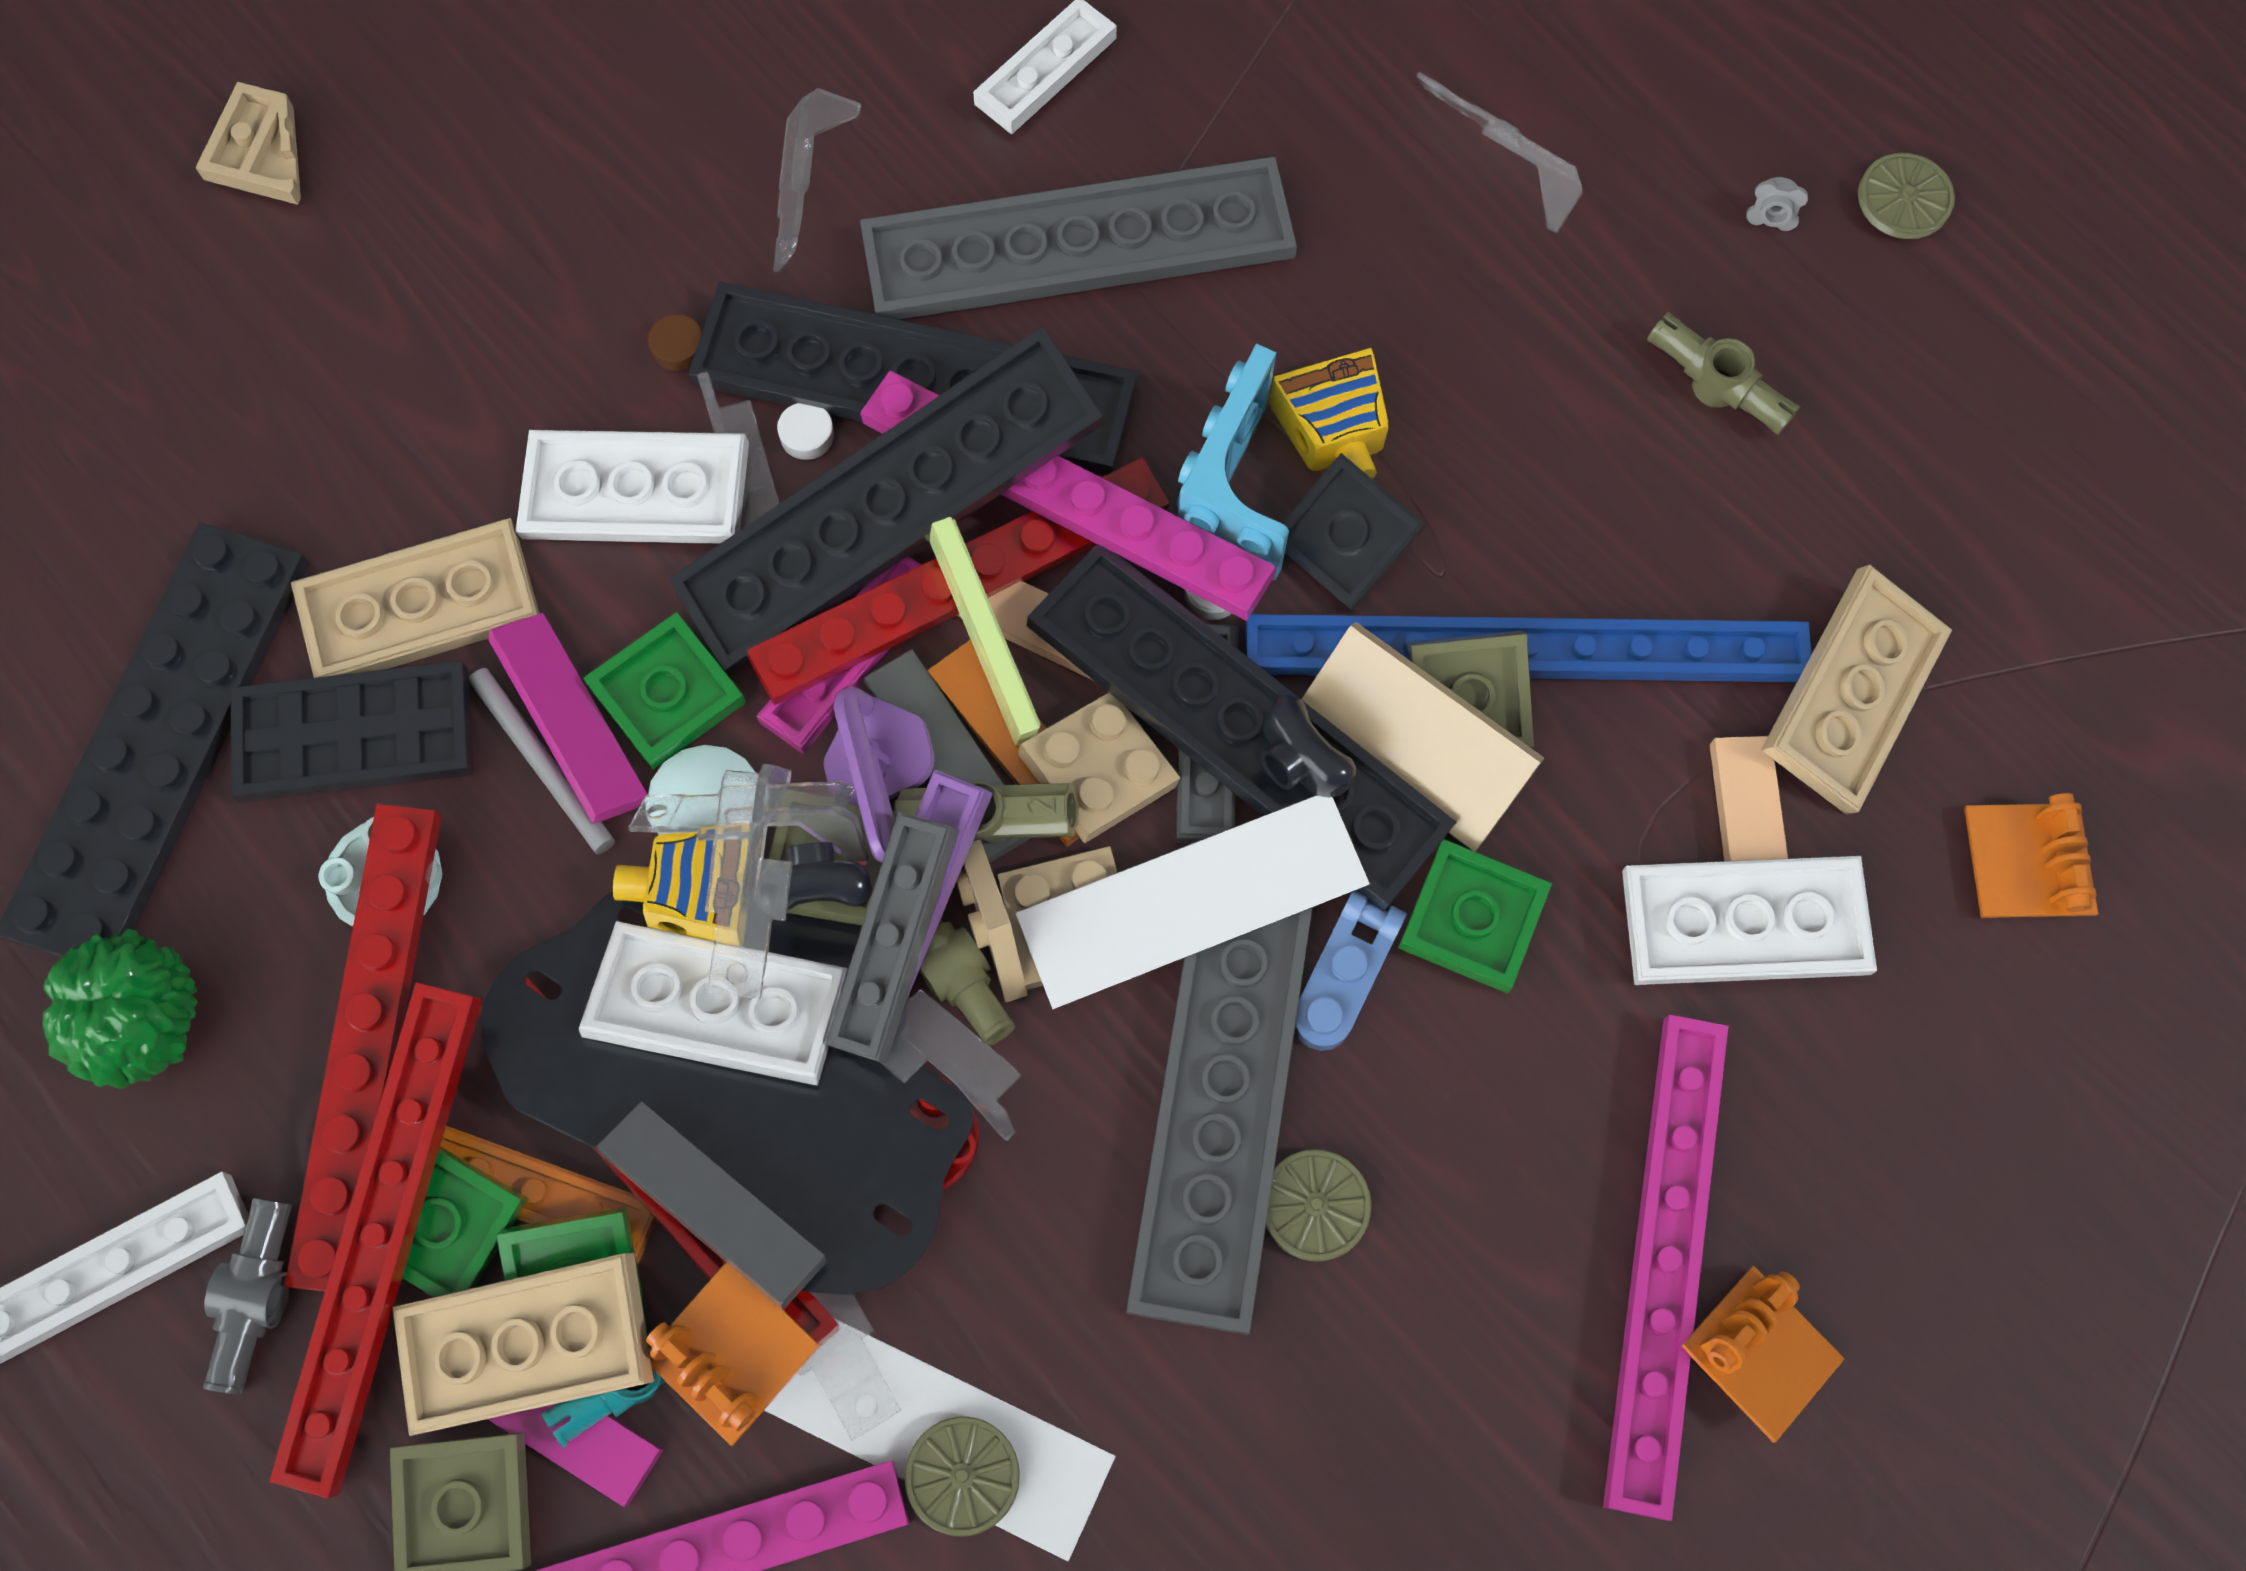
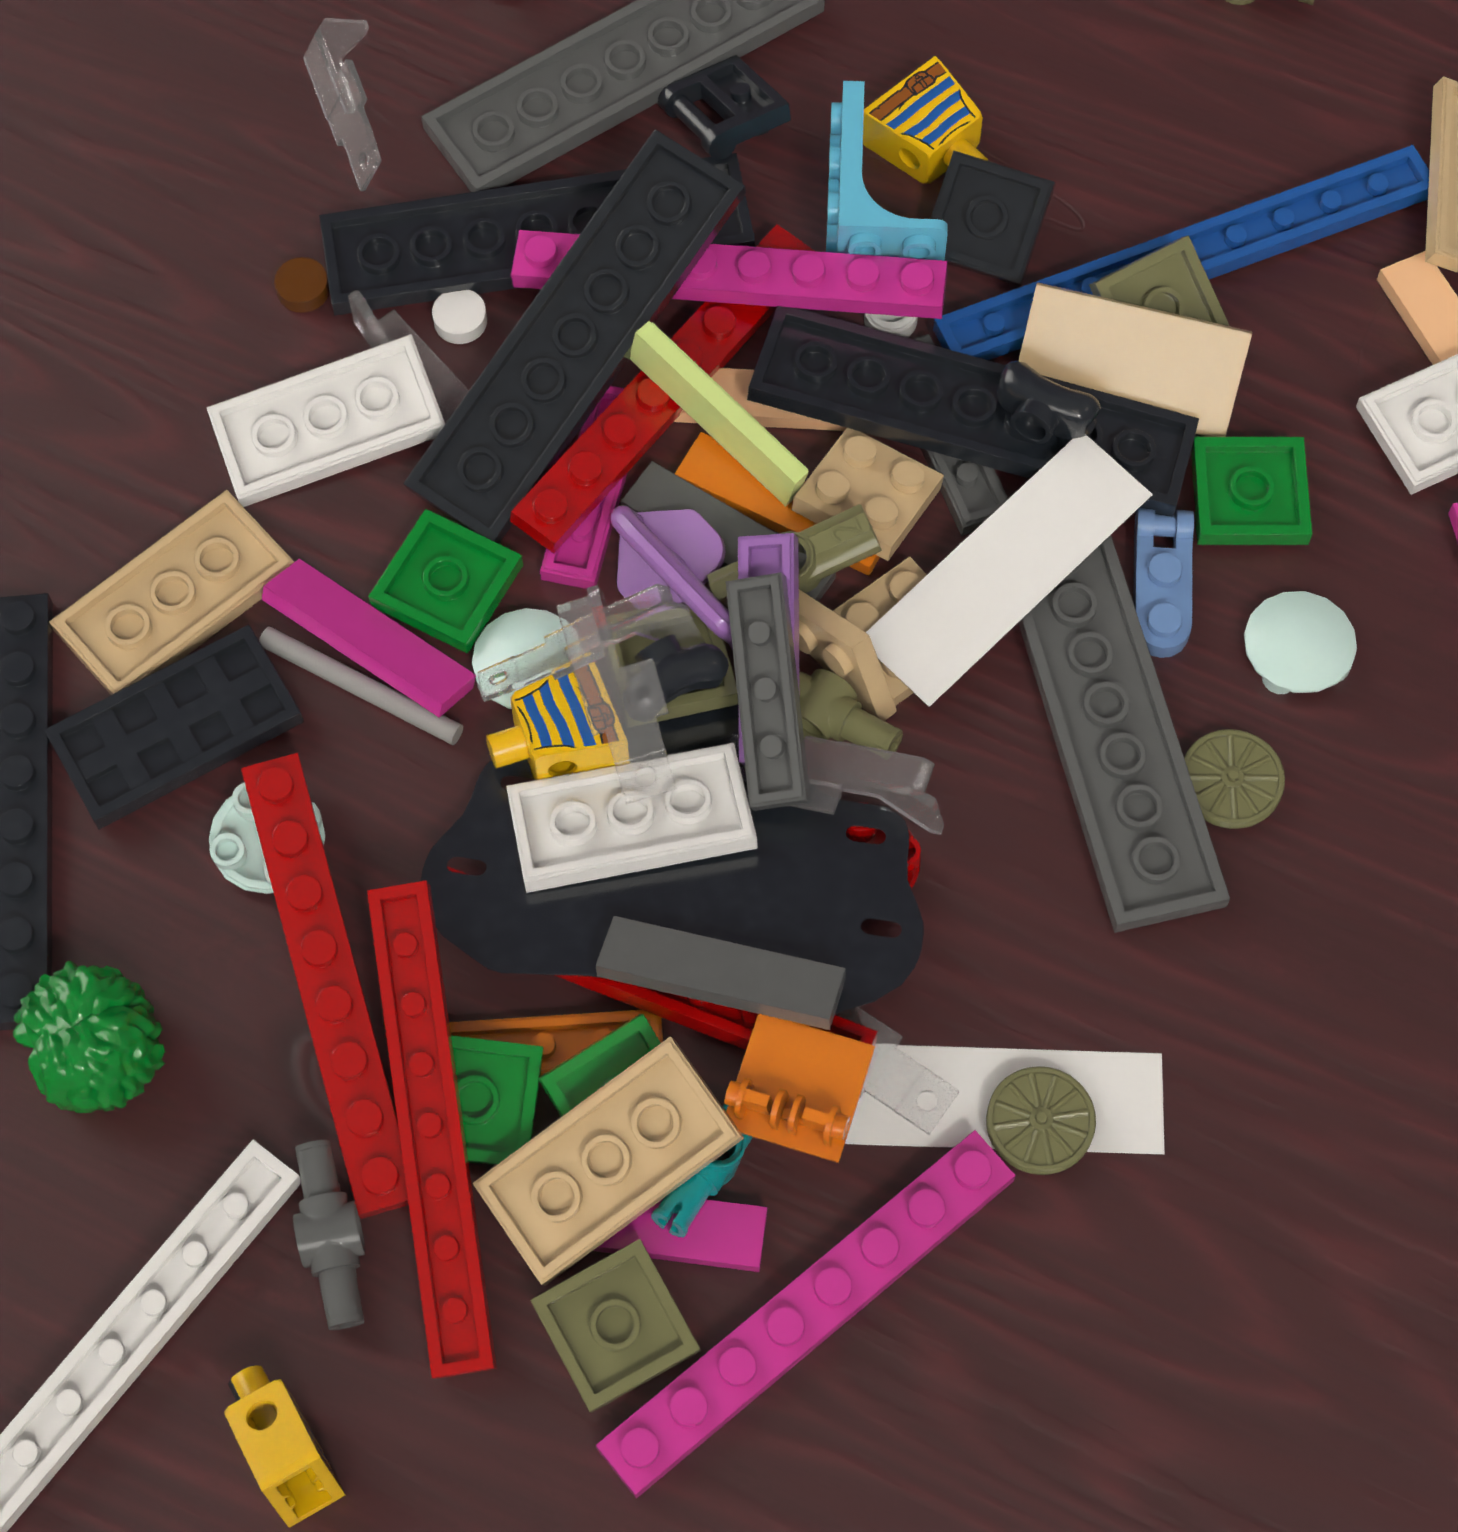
camera: 20 degrees left, 5 degrees down
(94, 1490) = (280, 1446): none -> yellow torso
(1165, 314) = (736, 94): none -> black plate
(1450, 1092) = (1300, 643): none -> light aqua dish

